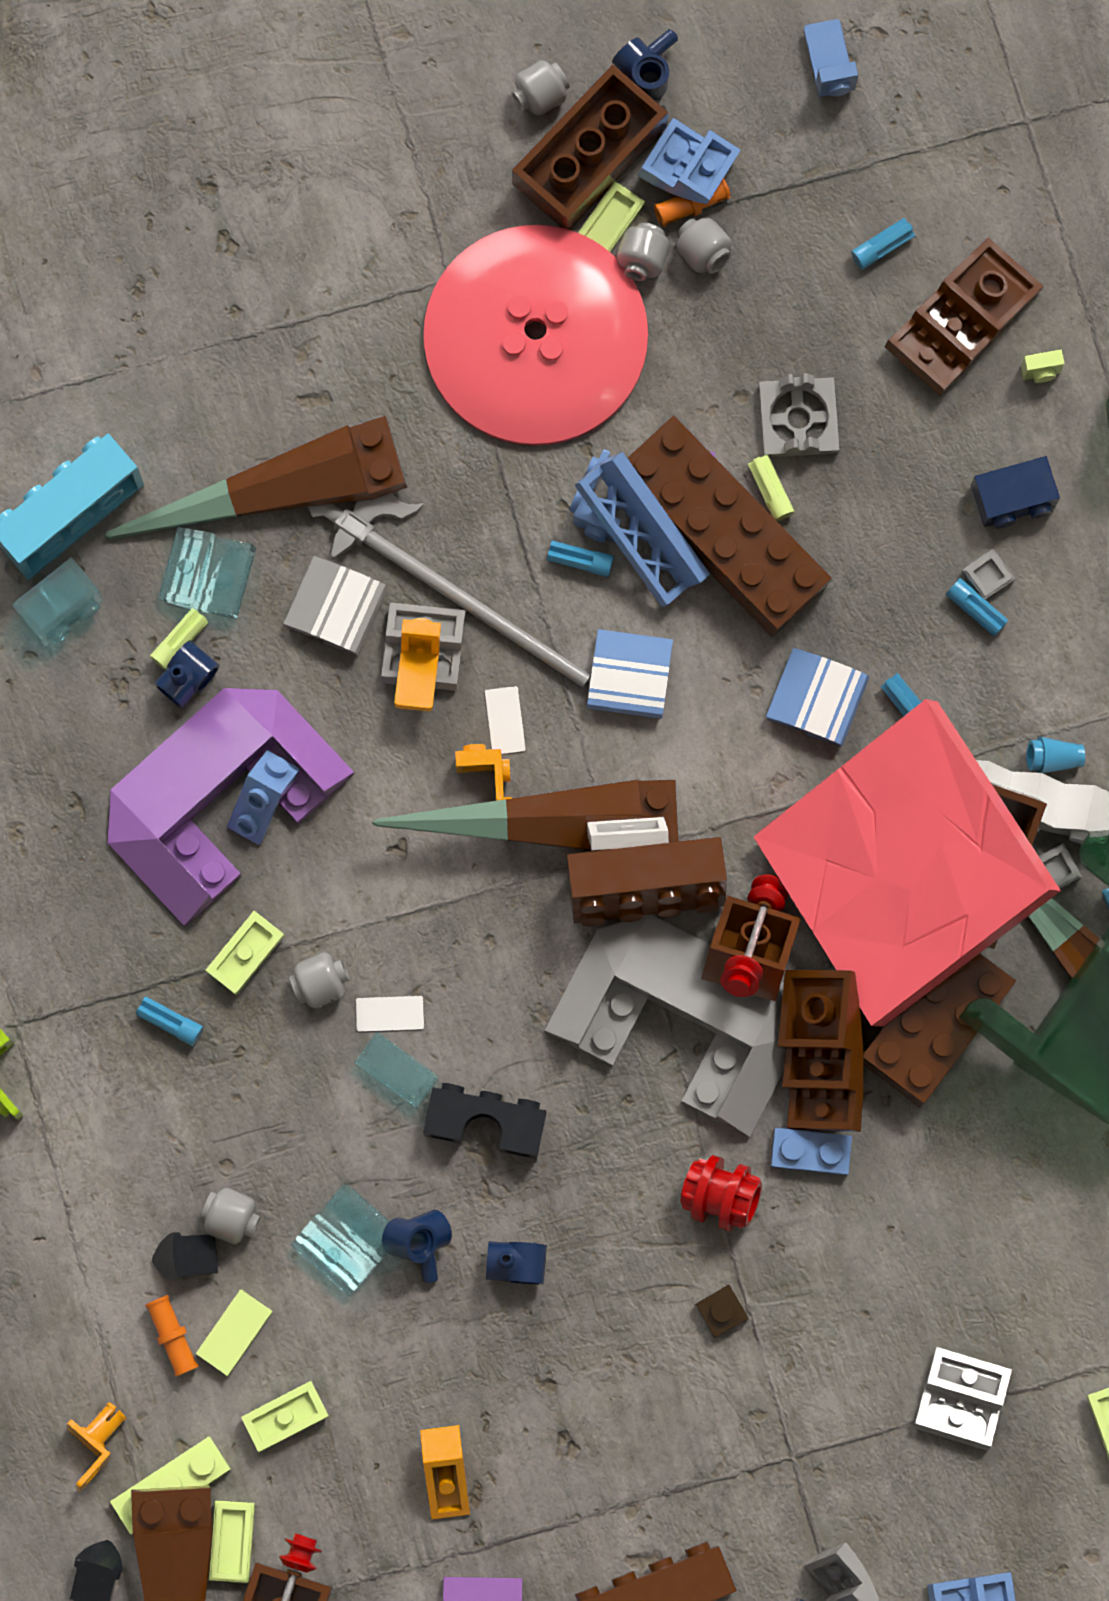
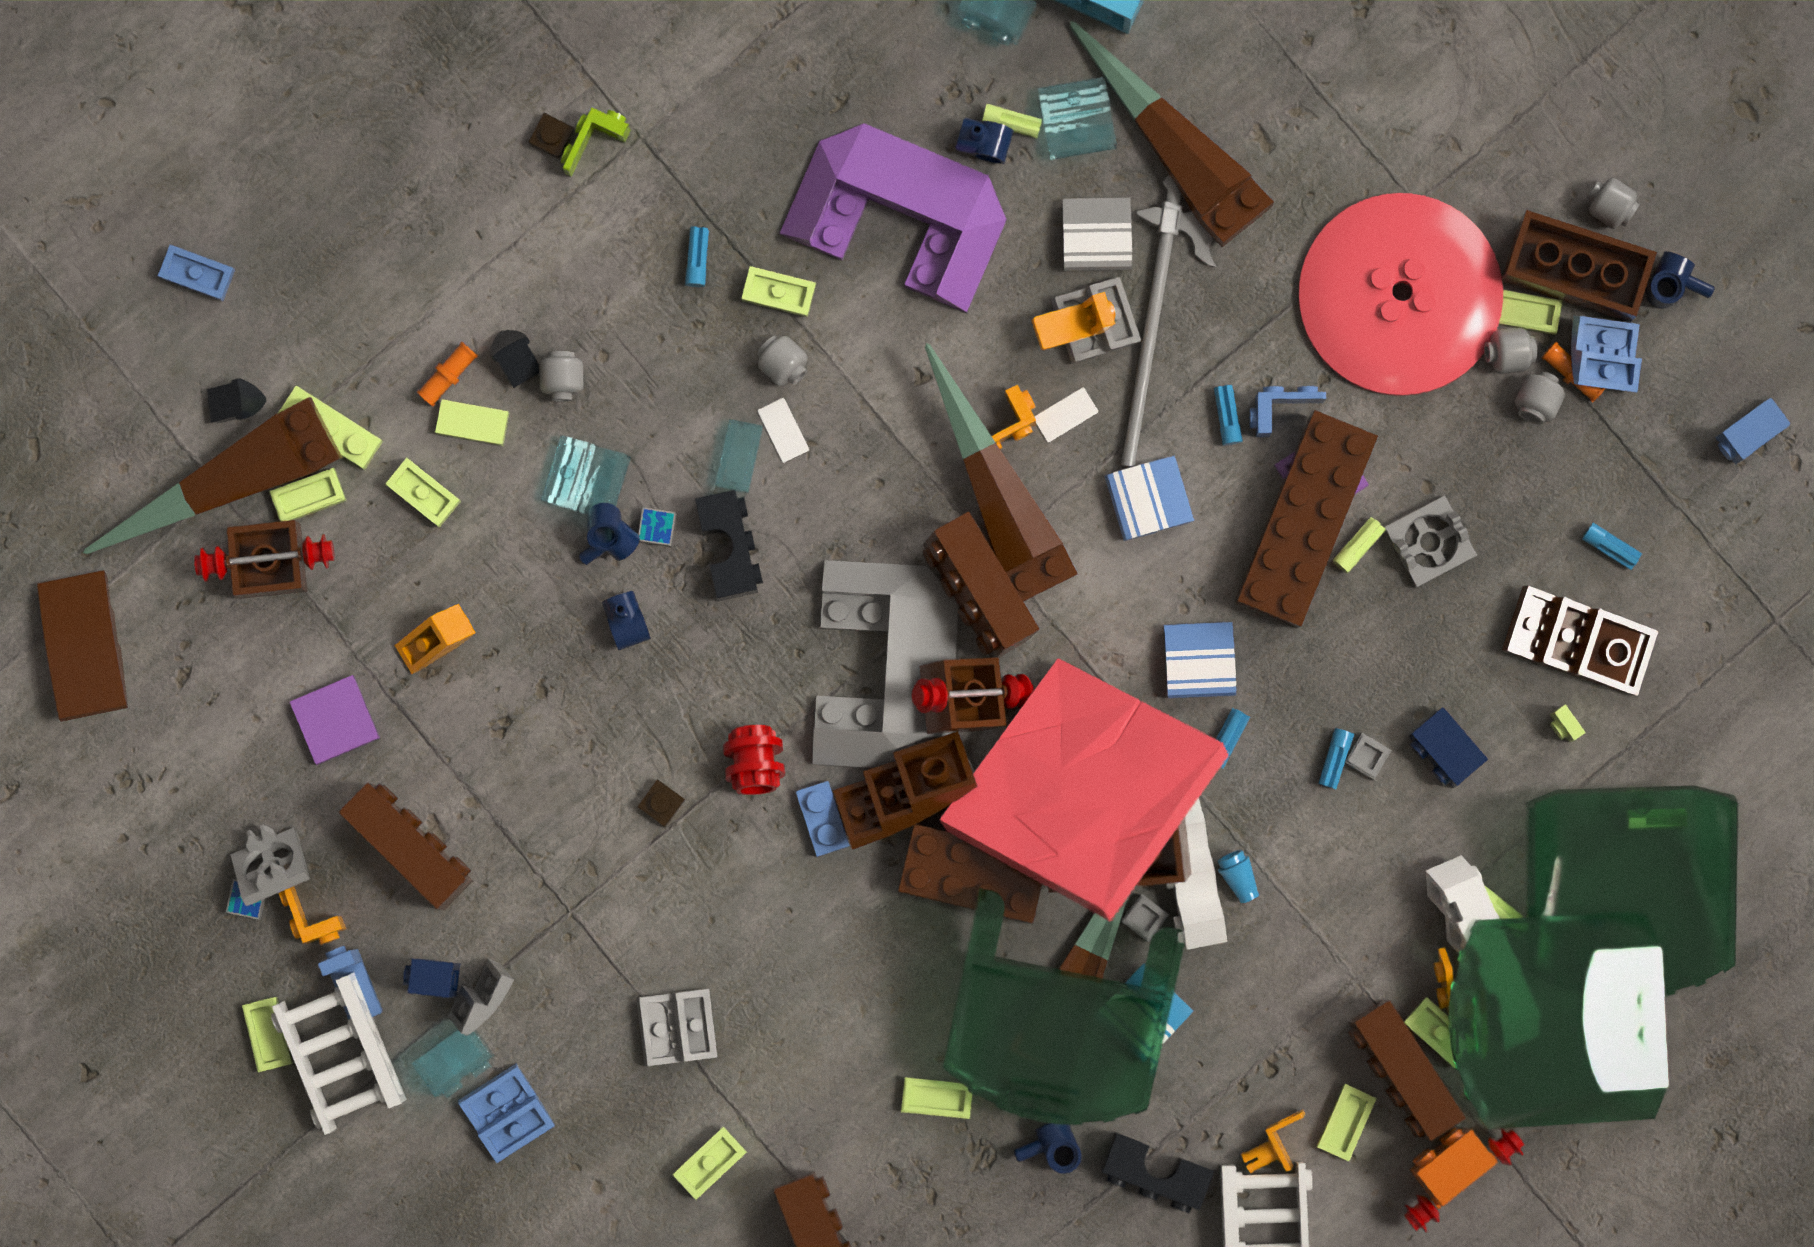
camera: 70 degrees right, 5 degrees up
(94, 1437) = (341, 350): light orange bracket -> none
(261, 796) = (911, 244): medium blue bracket -> none
(431, 1187) = (657, 526): none -> tile
(627, 833) = (1010, 553): white tile -> none
(652, 522) = (1281, 458): medium blue fence -> none

